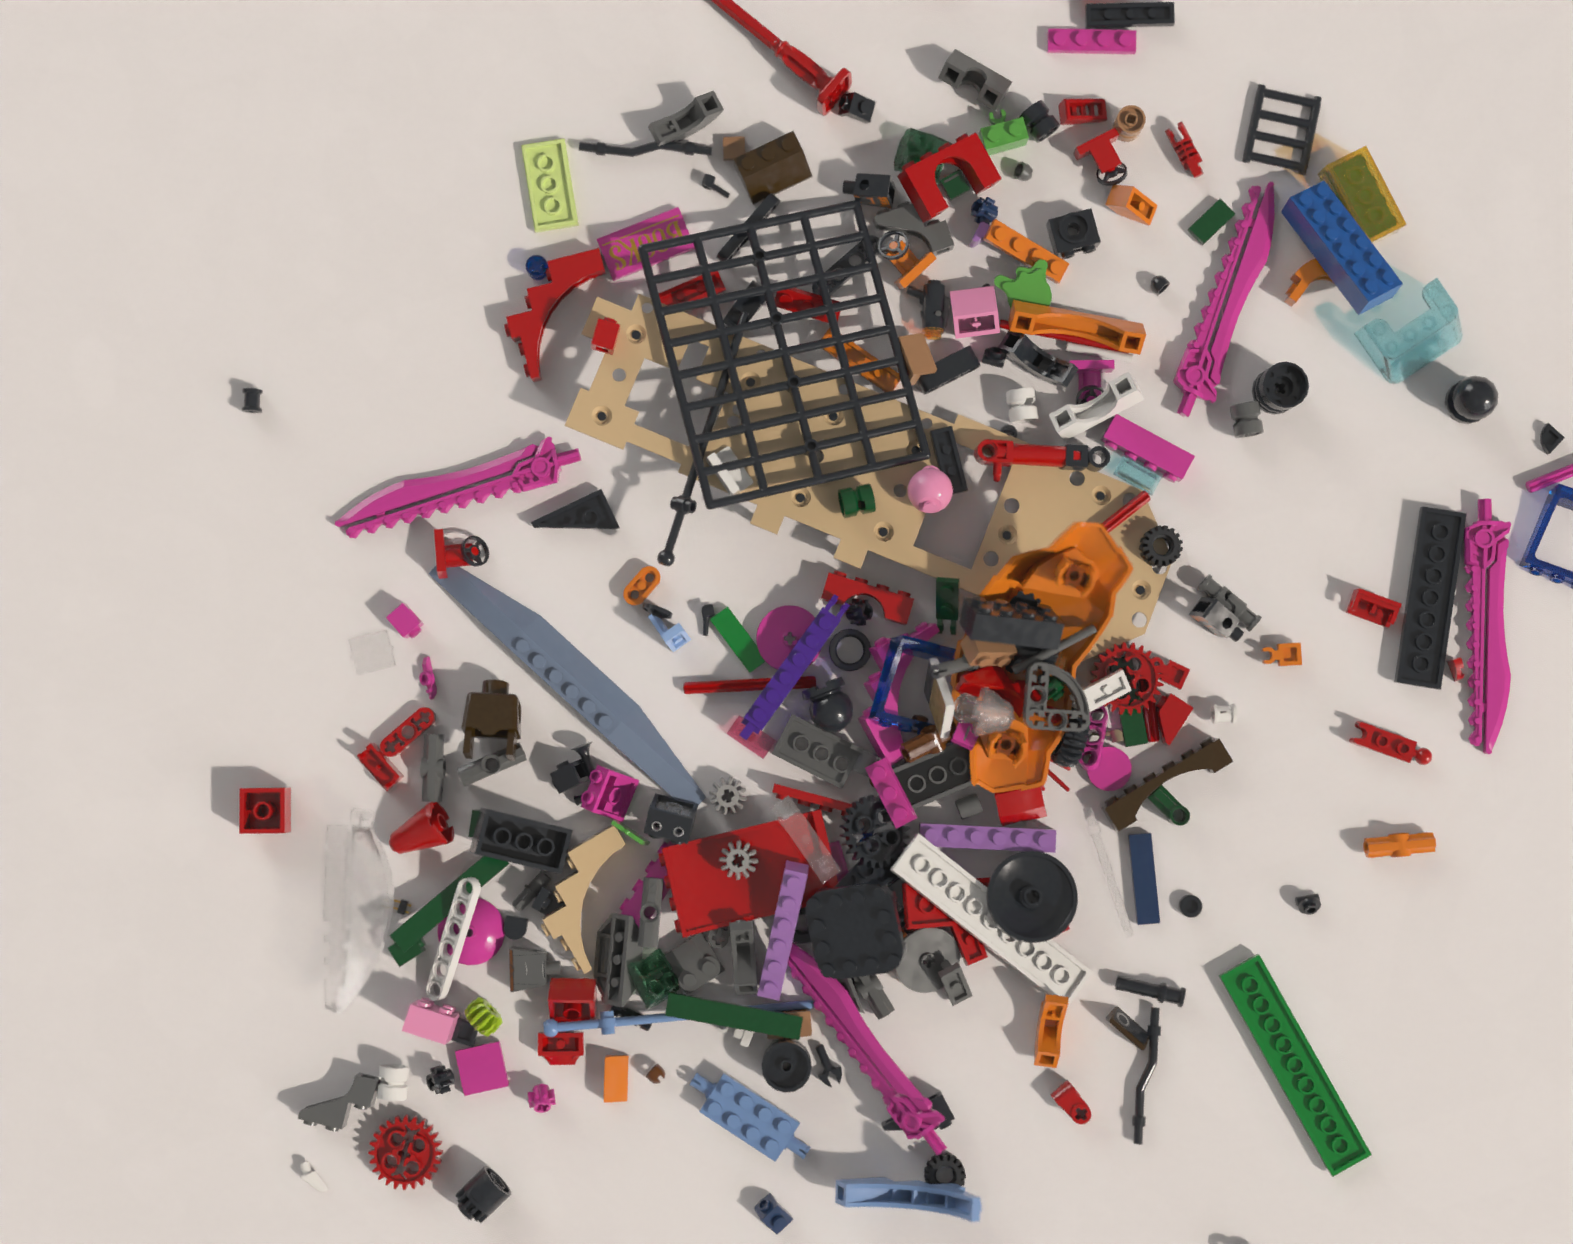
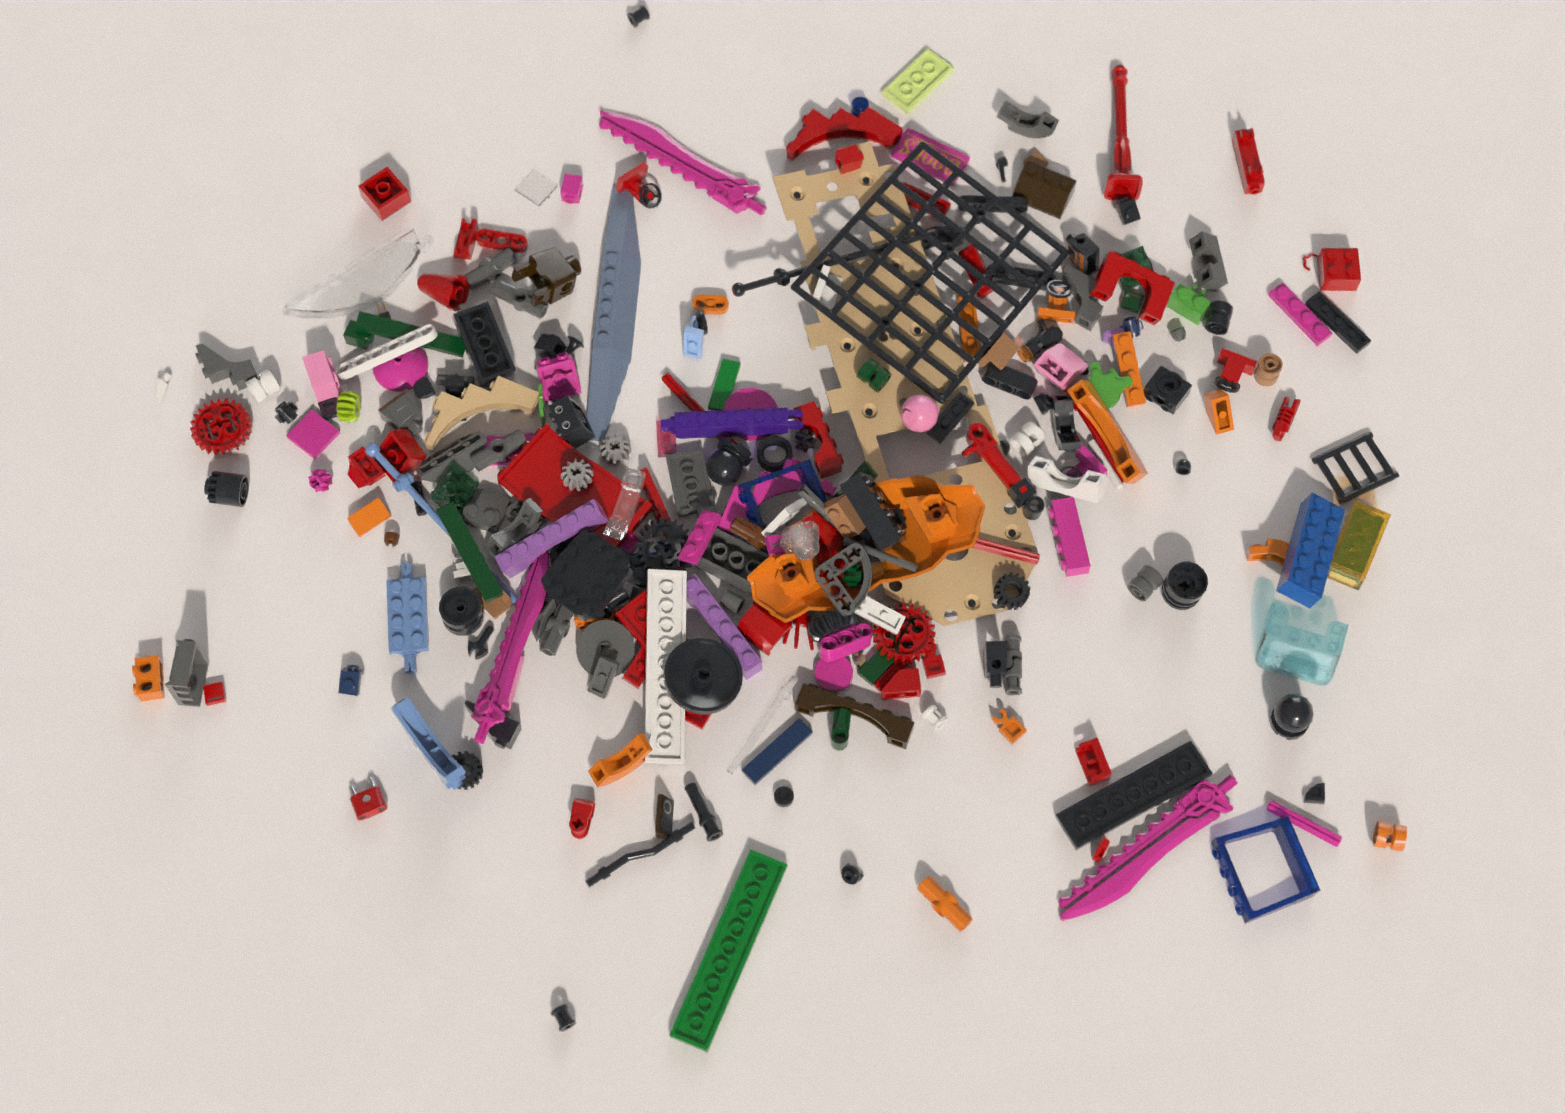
camera: 50 degrees right, 20 degrees down
(427, 678) = (545, 228): dark pink piece -> none
(585, 513) = (728, 240): black wing -> none
(602, 148) = (1011, 137): black bar -> none
(707, 611) = (725, 353): black hand -> none
(1069, 116) = (1250, 332): red slope -> none
(1137, 475) = (1046, 546): clear light blue tile -> none
(1196, 360) = (1153, 526): dark pink piece -> none
(1211, 221) = (1254, 469): dark green tile -> none
(1390, 744) = (1009, 844): red plate -> none

